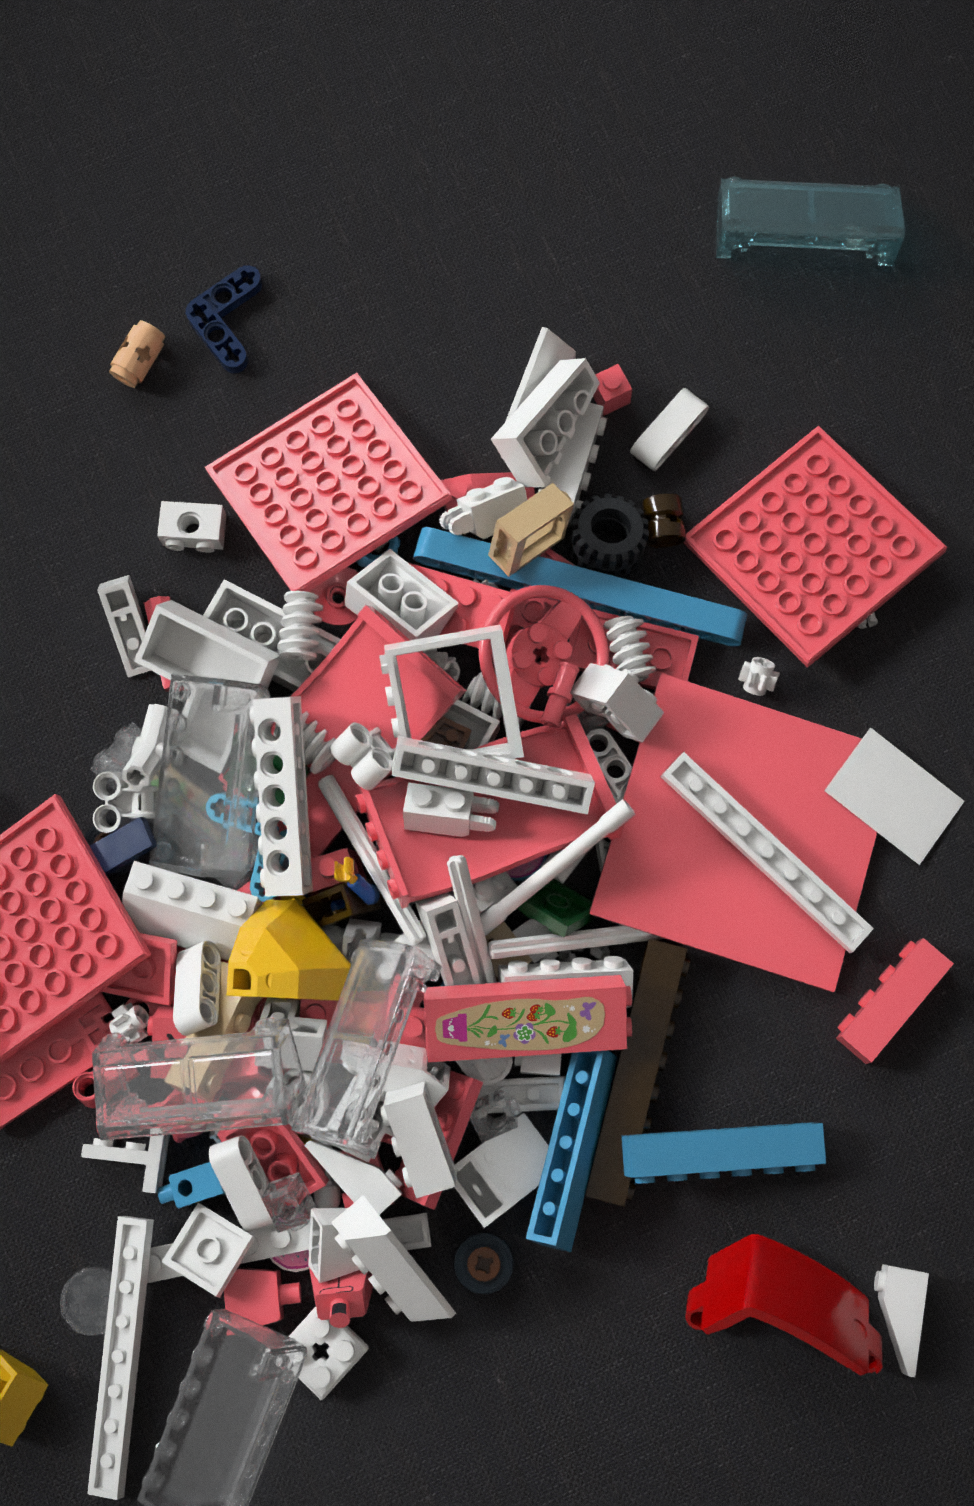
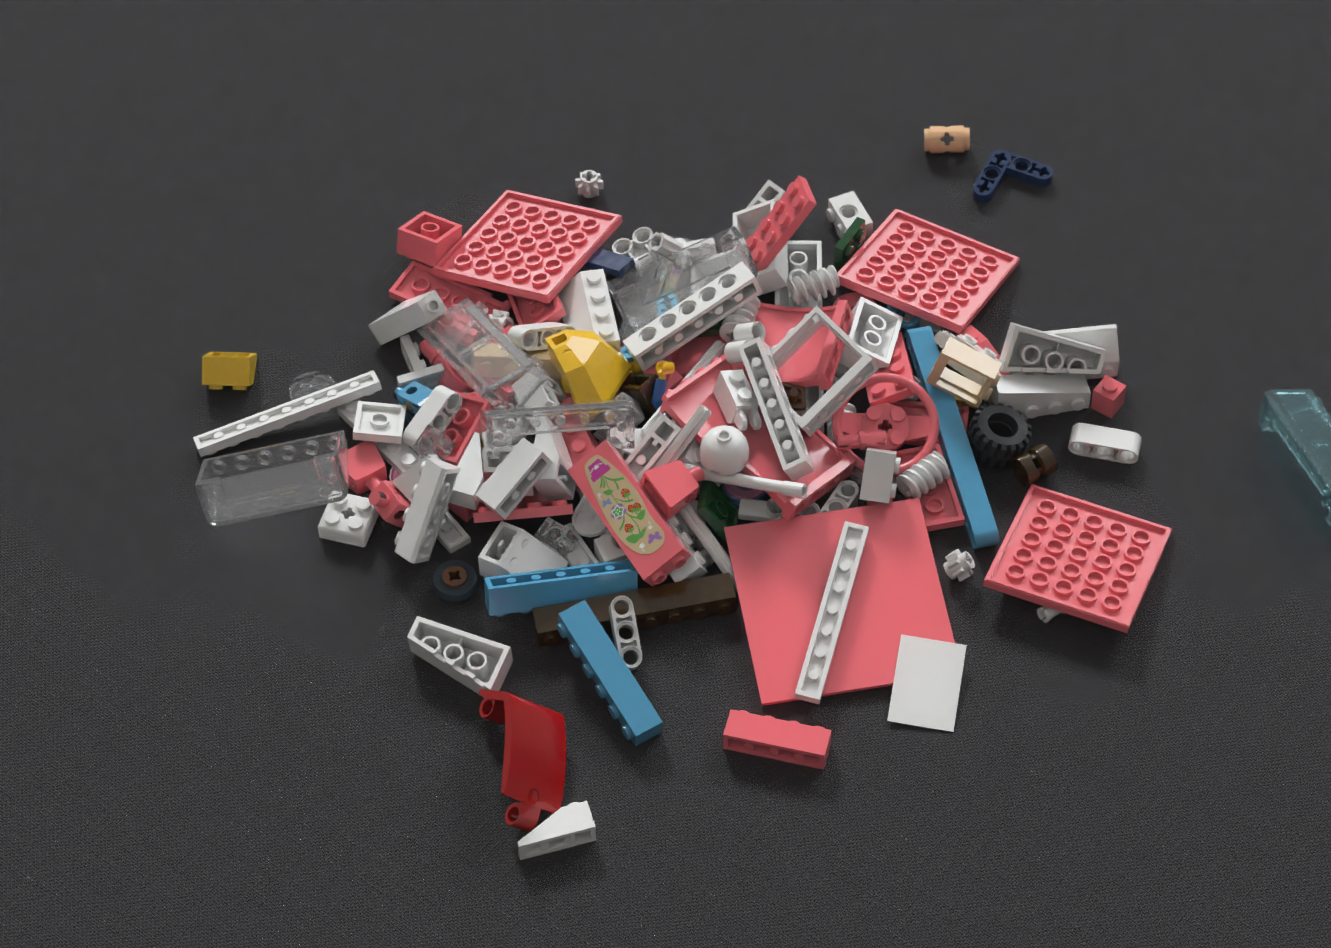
camera: 60 degrees right, 25 degrees down
(63, 1135) = (407, 316): none -> white slope
(216, 620) = (781, 223): none -> coral plate
(249, 552) = (849, 243): none -> dark green plate
(515, 866) = (724, 450): none -> white cylinder
(525, 949) = (672, 486): none -> coral torso
(606, 1312) = (463, 656): none -> white wedge
(691, 1103) = (627, 620): none -> white beam

